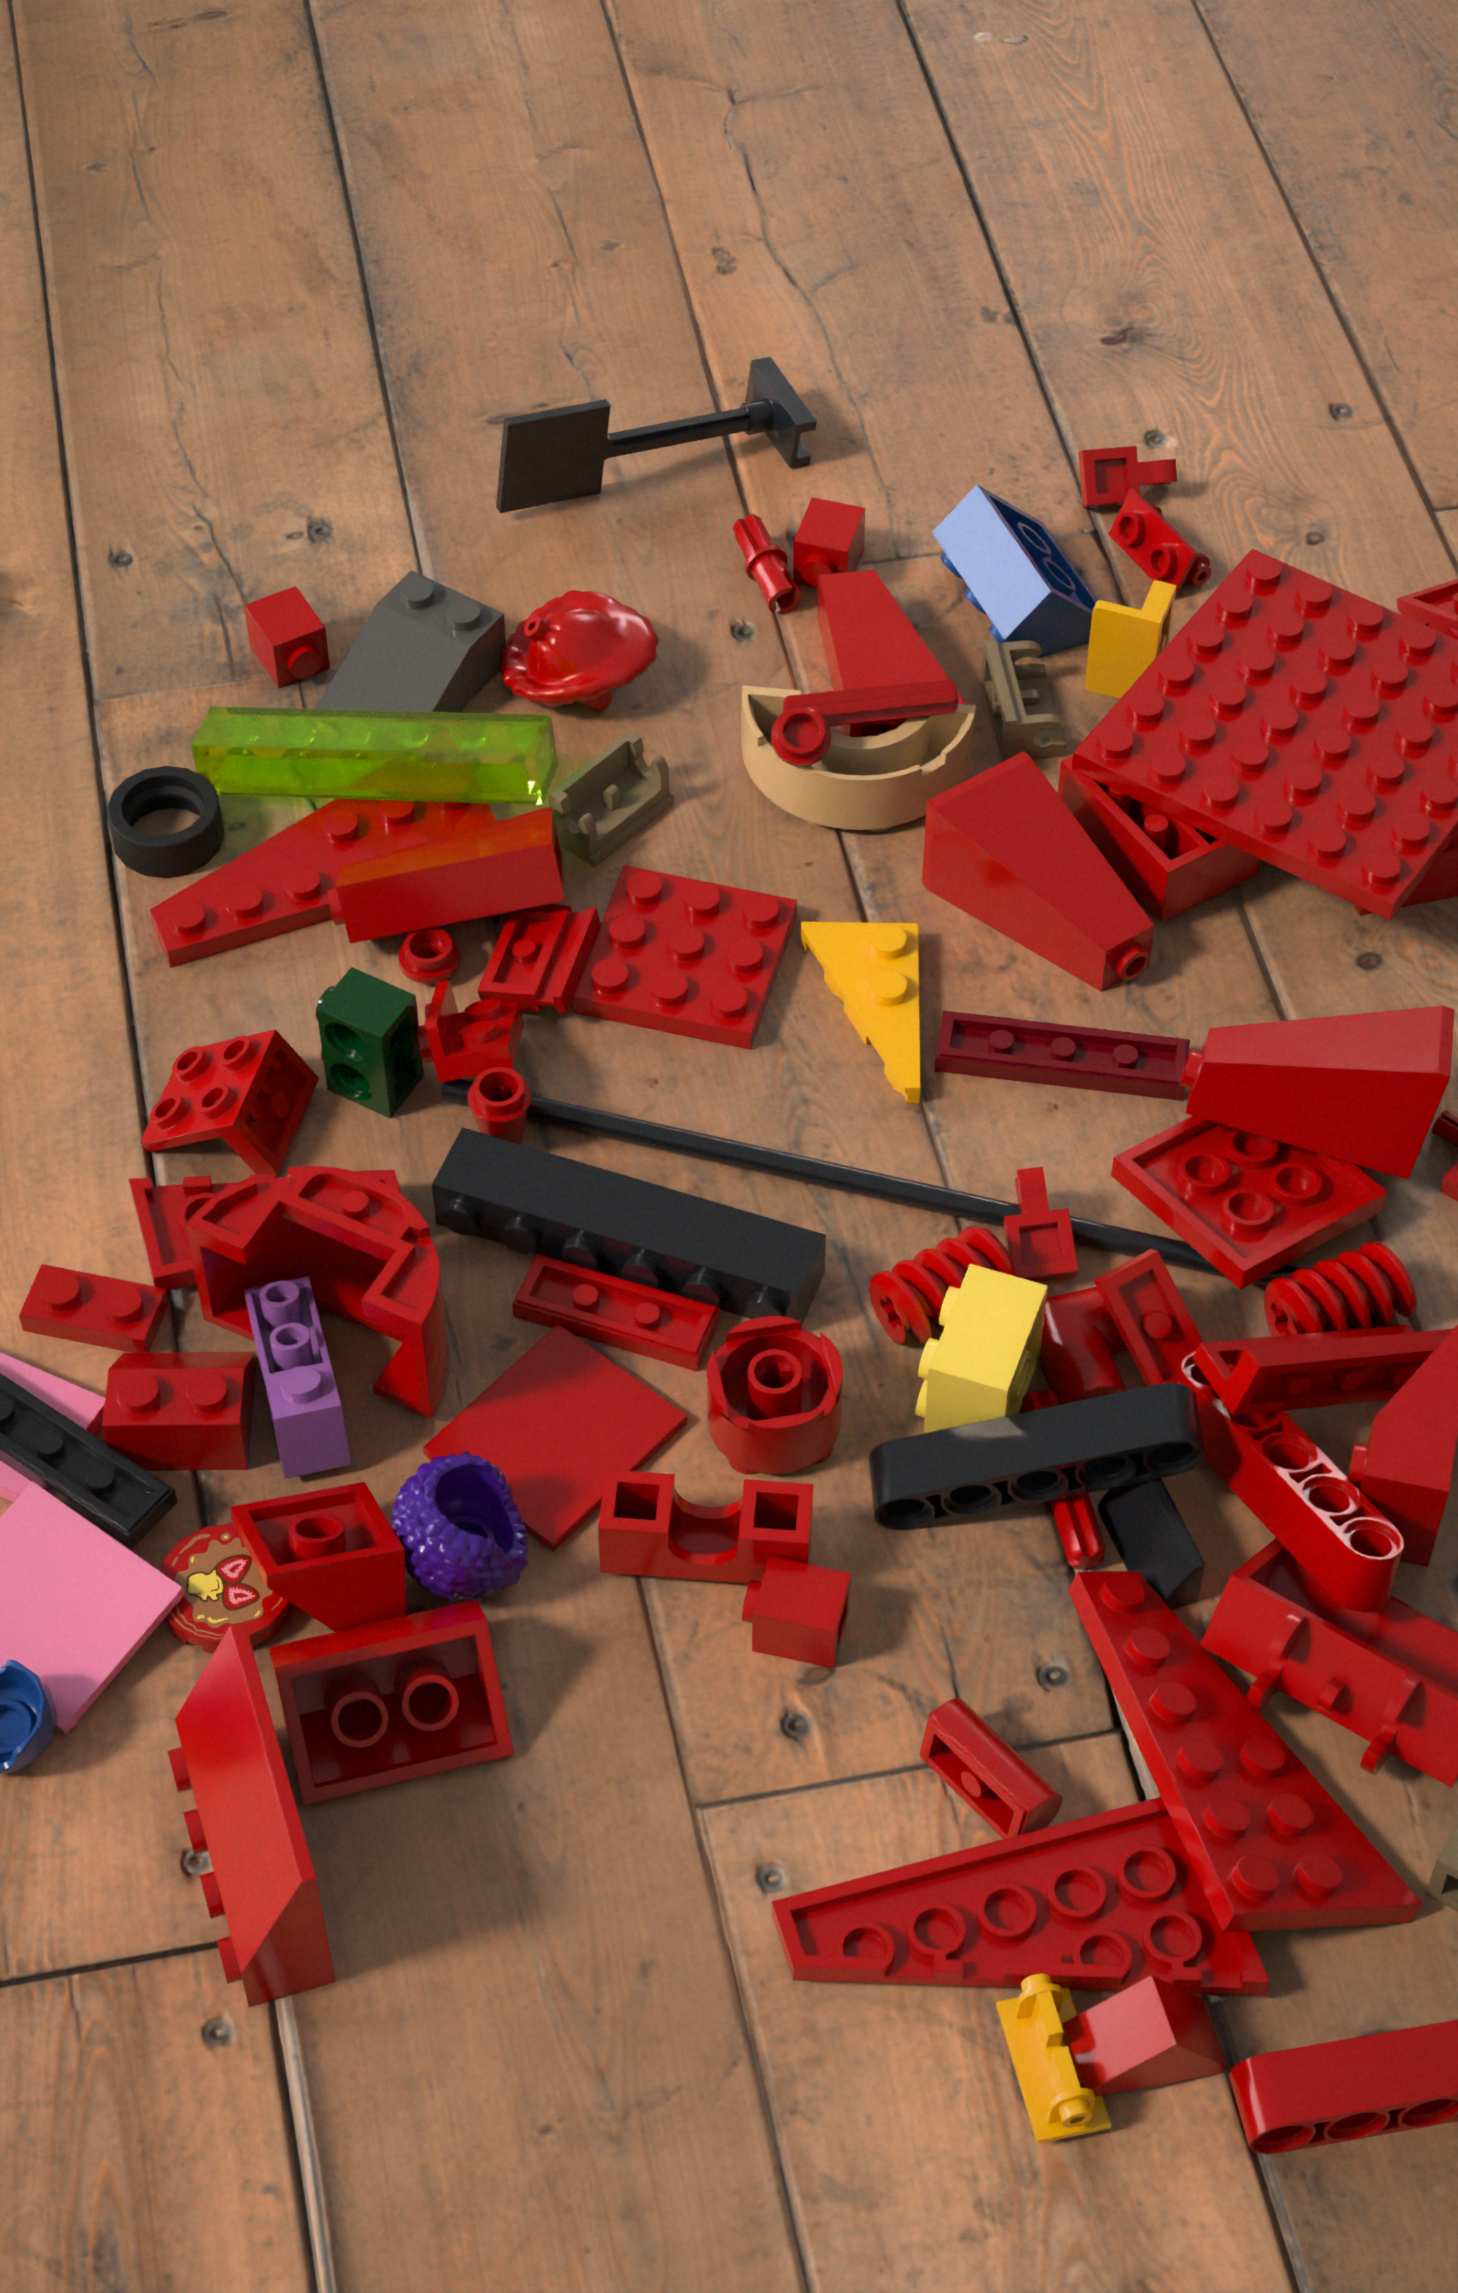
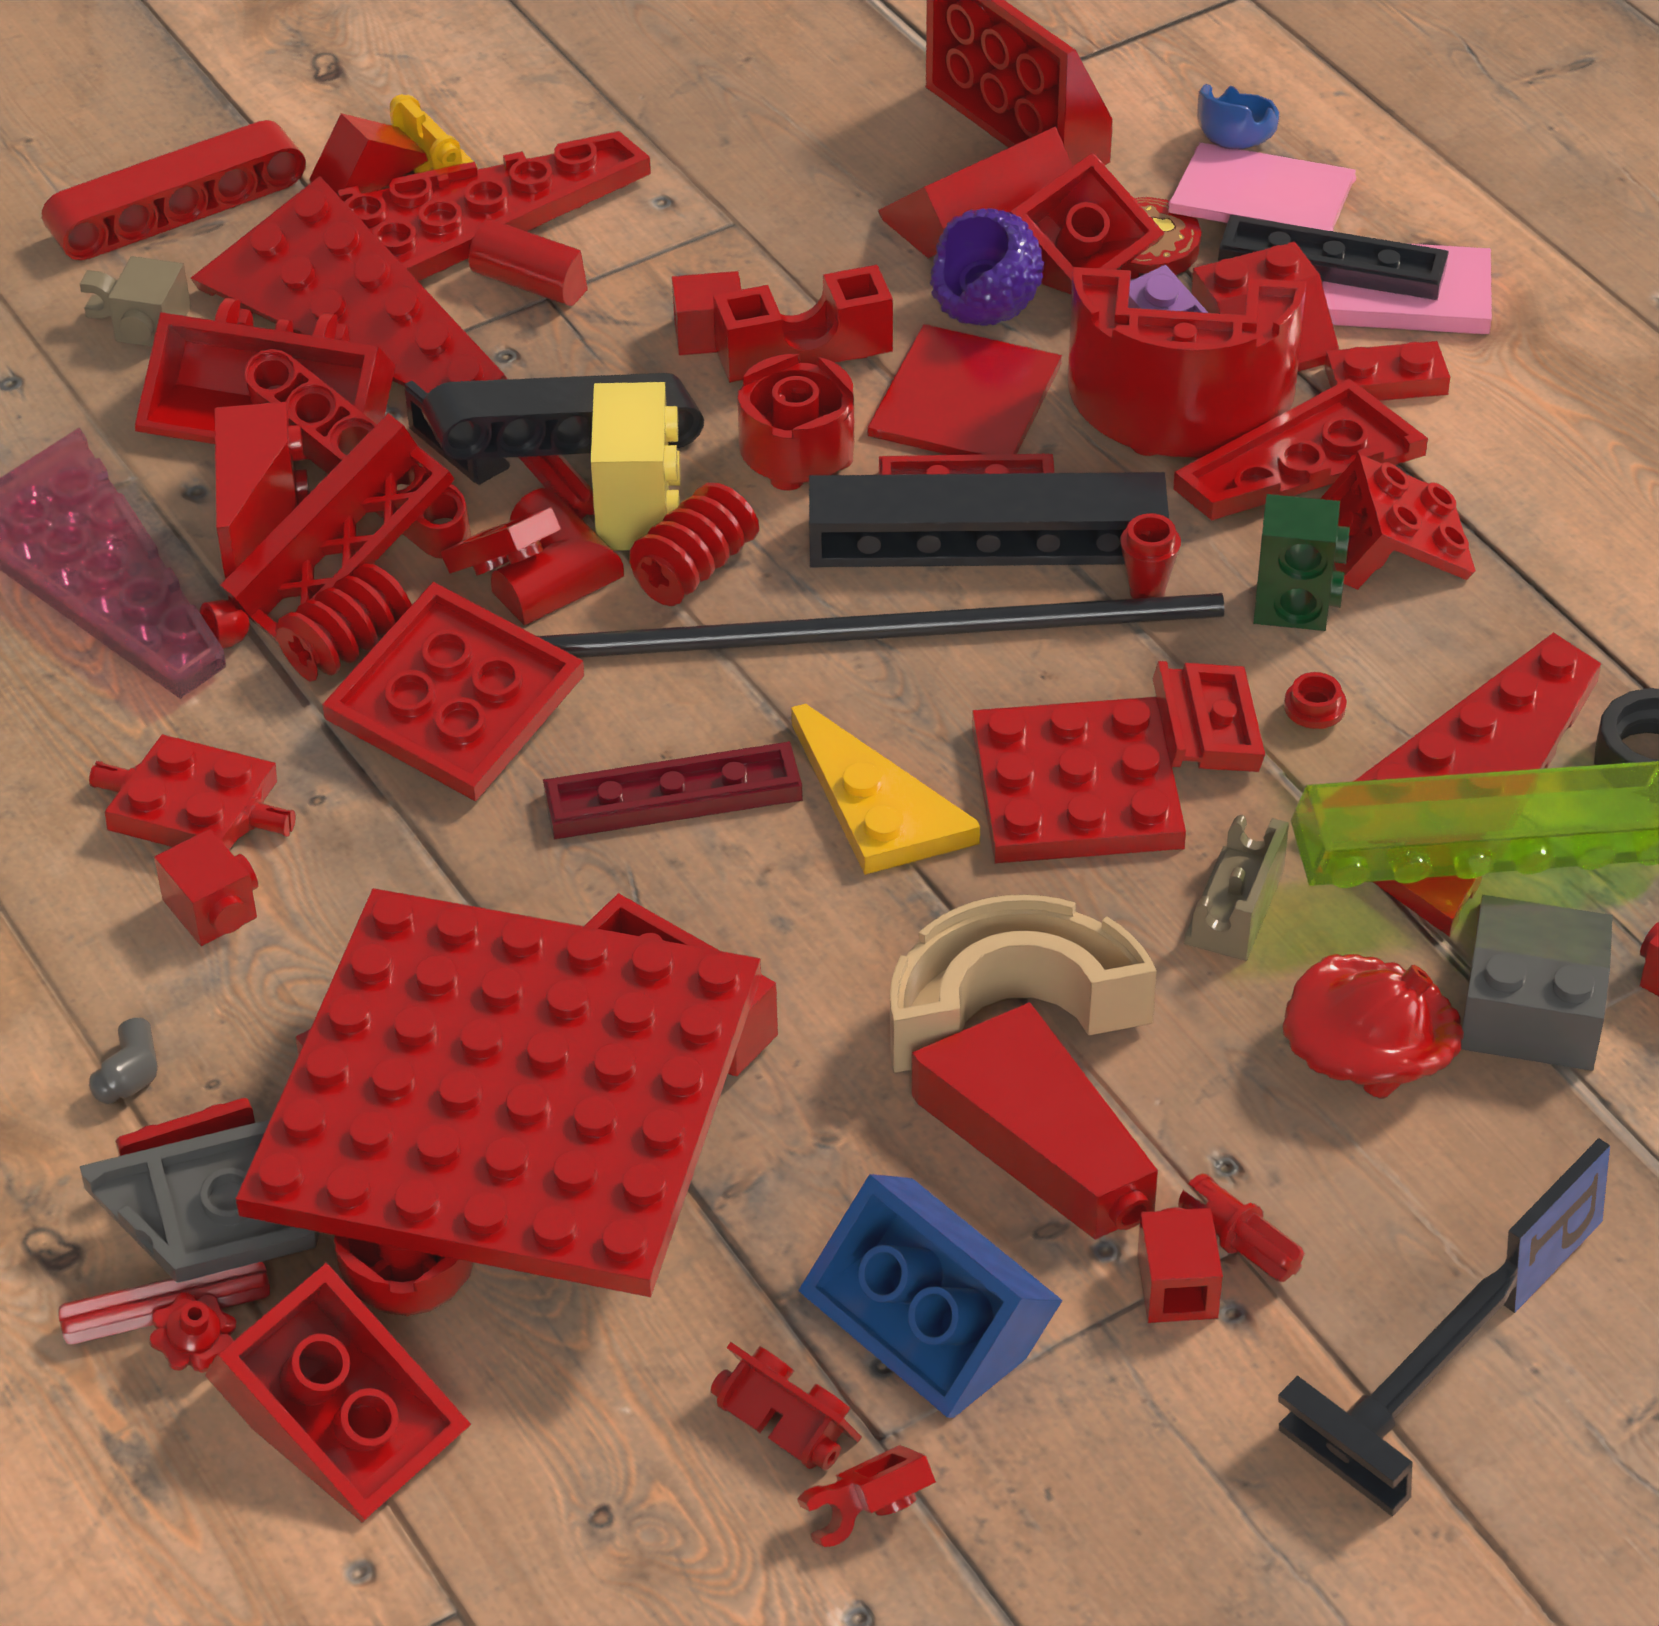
camera: 160 degrees right, 5 degrees down
(452, 879) = (1319, 737): red slope -> none
(468, 1040) = (1217, 602): red bracket -> none
(801, 736) = (1053, 893): red plate -> none
(880, 702) = (1002, 963): red axle -> none
(1020, 701) = (861, 1126): dark tan hinge -> none
(1030, 871) = (786, 899): red slope -> none
(1039, 1239) = (630, 606): red plate -> none
(1127, 640) = (759, 1182): yellow panel -> none
(1329, 1084) = (393, 738): red slope -> none

